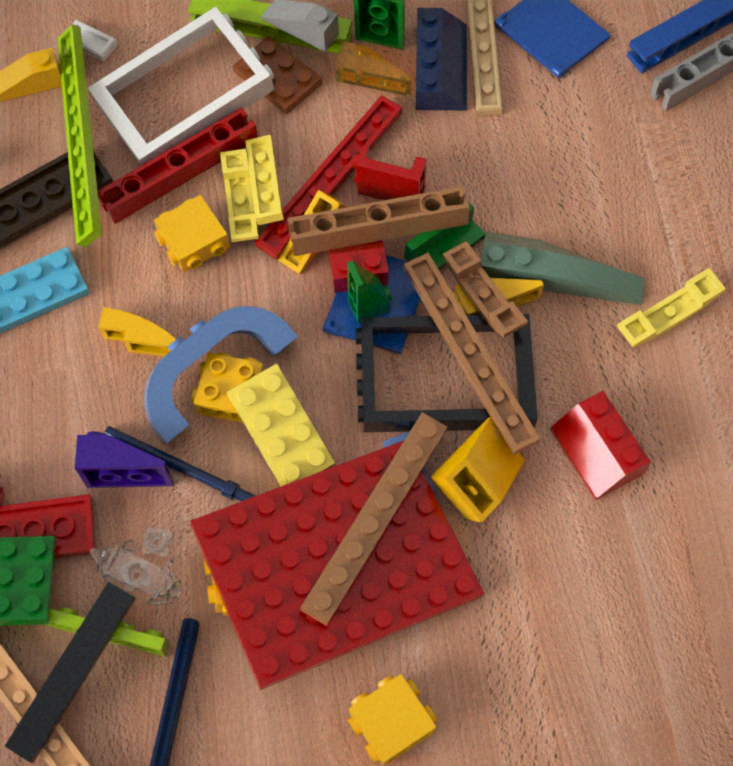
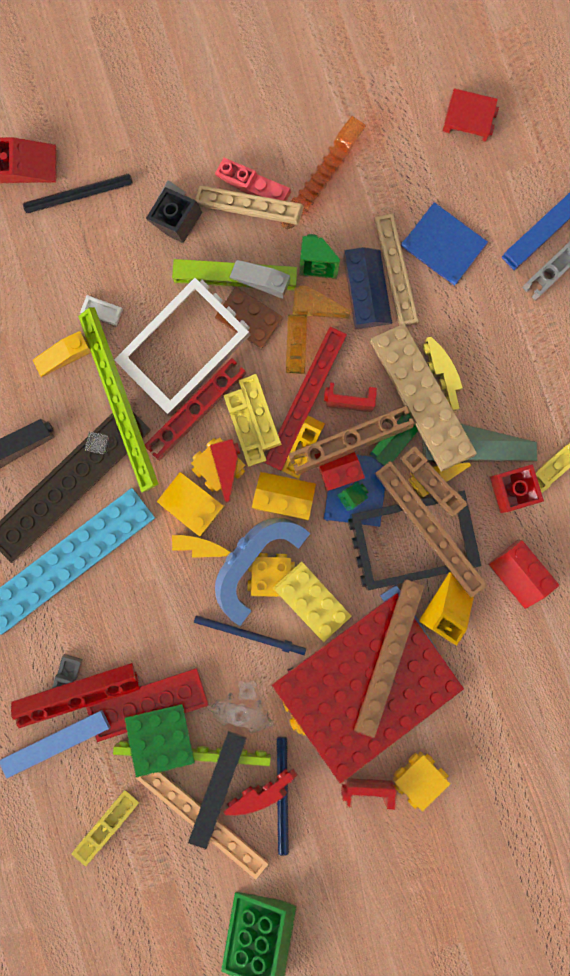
camera: 15 degrees left, 20 degrees up
(35, 179) = (96, 443): none -> clear plate
(114, 464) = (206, 647): dark purple slope -> none
(129, 700) = (256, 799): none -> red slope
(144, 281) = (190, 504): none -> yellow slope
(200, 224) = (226, 463): none -> red slope
(272, 289) = (284, 496): none -> yellow slope
(308, 712) = (369, 787): none -> red panel
(331, 112) = (296, 344): none -> clear yellow slope
(491, 193) = (423, 397): none -> tan plate
(525, 169) = (443, 367): none -> light yellow slope
(604, 326) = (516, 489): none -> red slope

